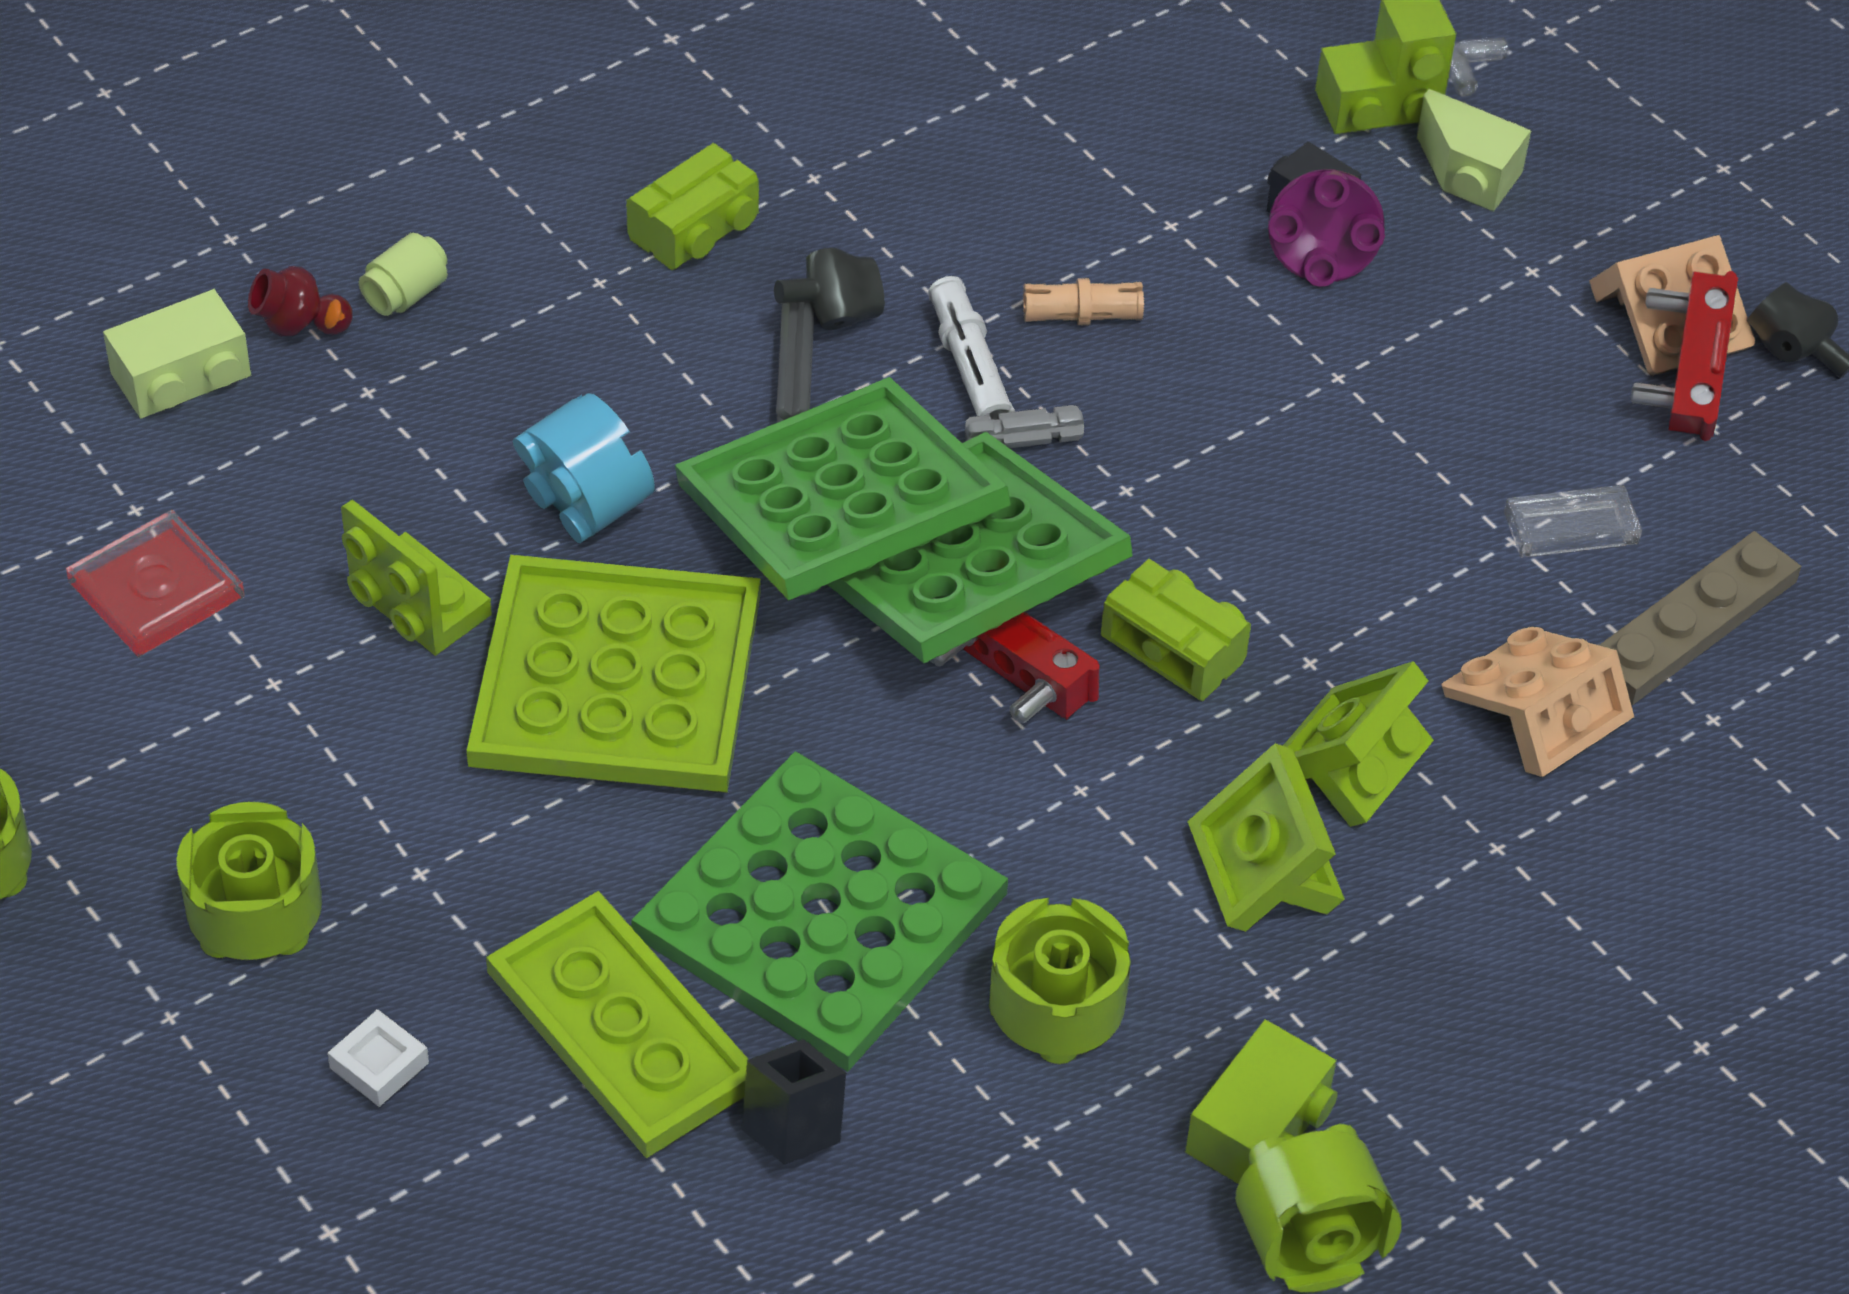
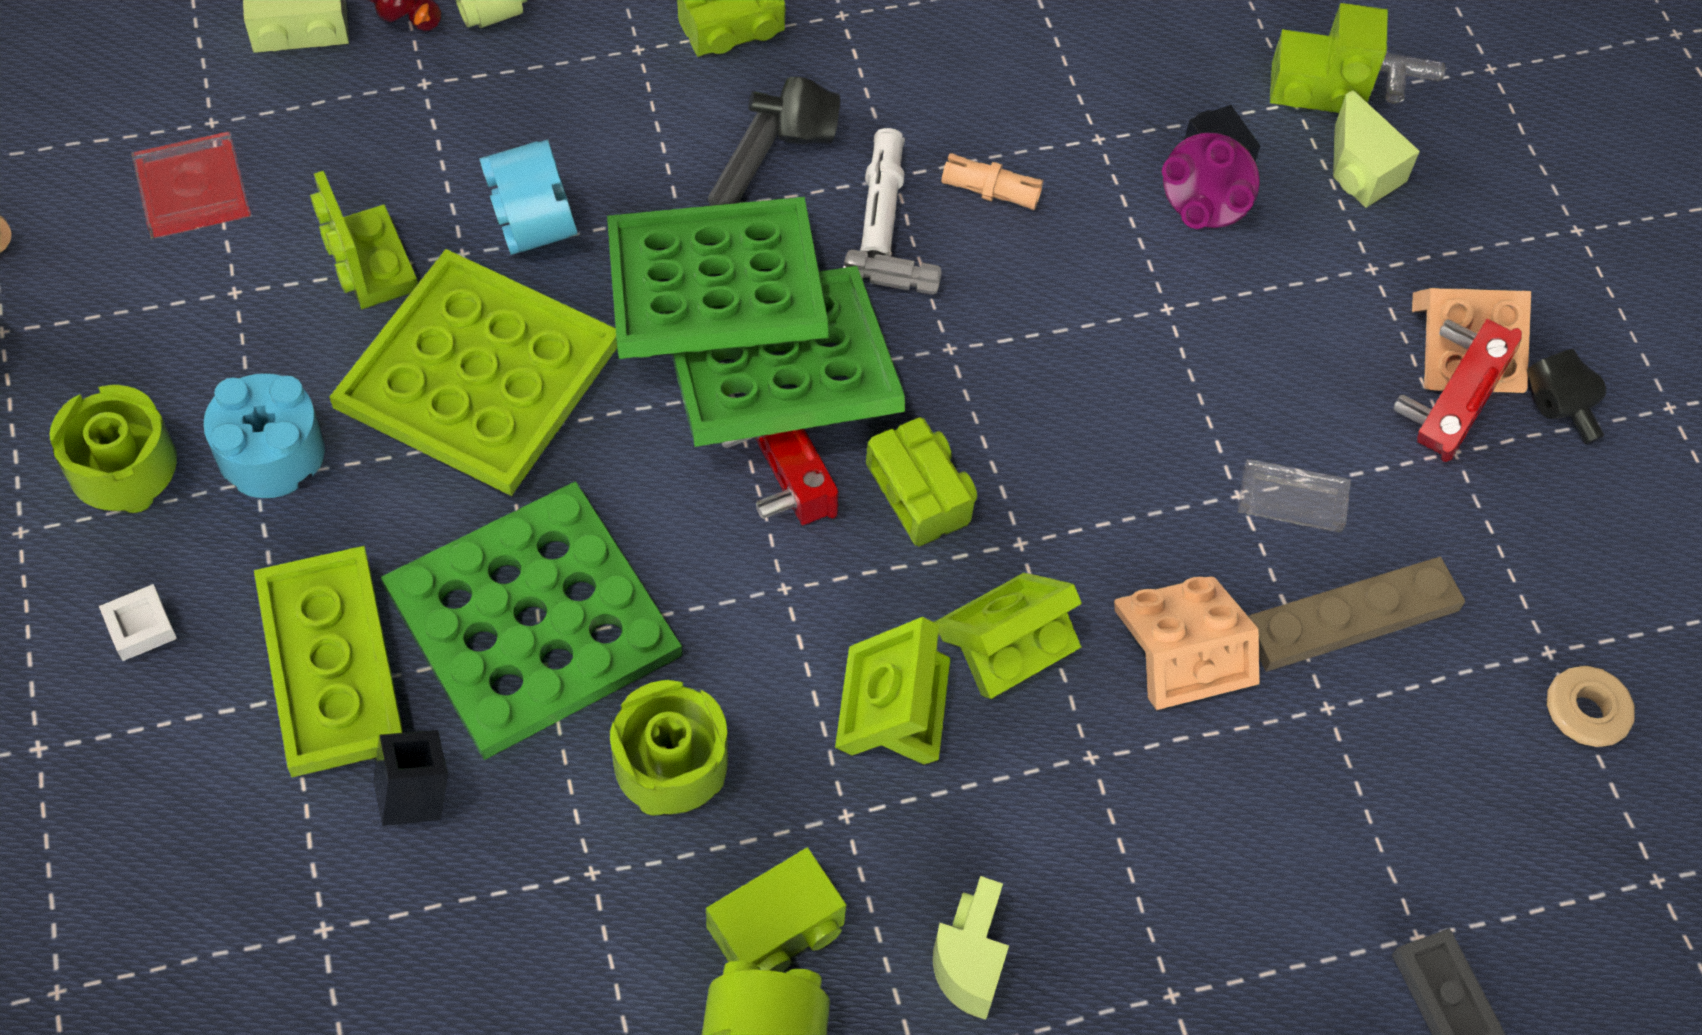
camera: 20 degrees right, 10 degrees up
(415, 812) = (264, 434): none -> medium azure brick
(1479, 1078) = (963, 956): none -> yellowish green brick

